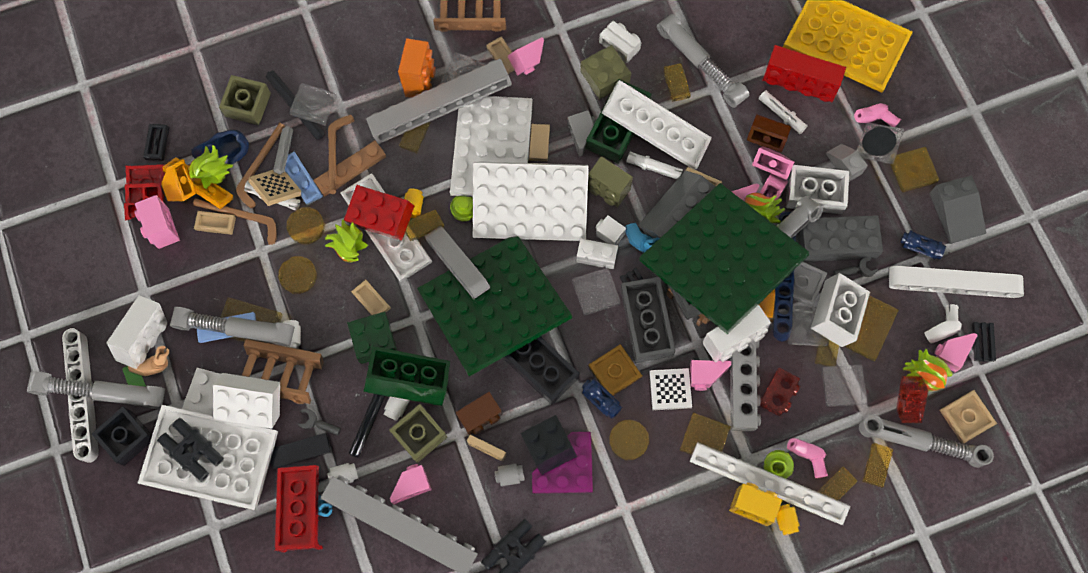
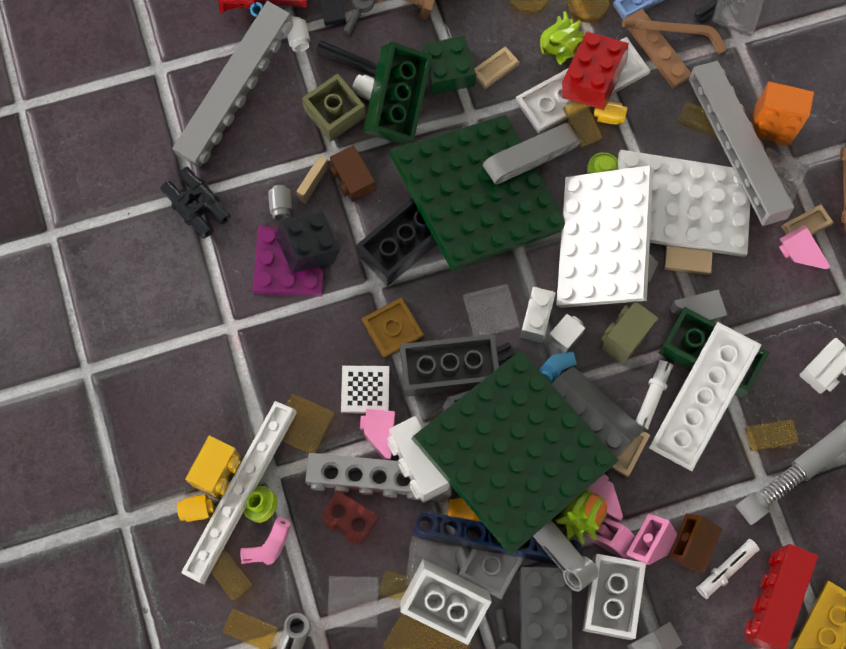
camera: 90 degrees right, 0 degrees up
(410, 484) = (281, 101): bright pink slope -> none
(604, 70) = (786, 341): olive brick -> none
(608, 405) = (351, 315): dark blue piece -> none
(629, 439) = (309, 336): clear yellow tile -> none

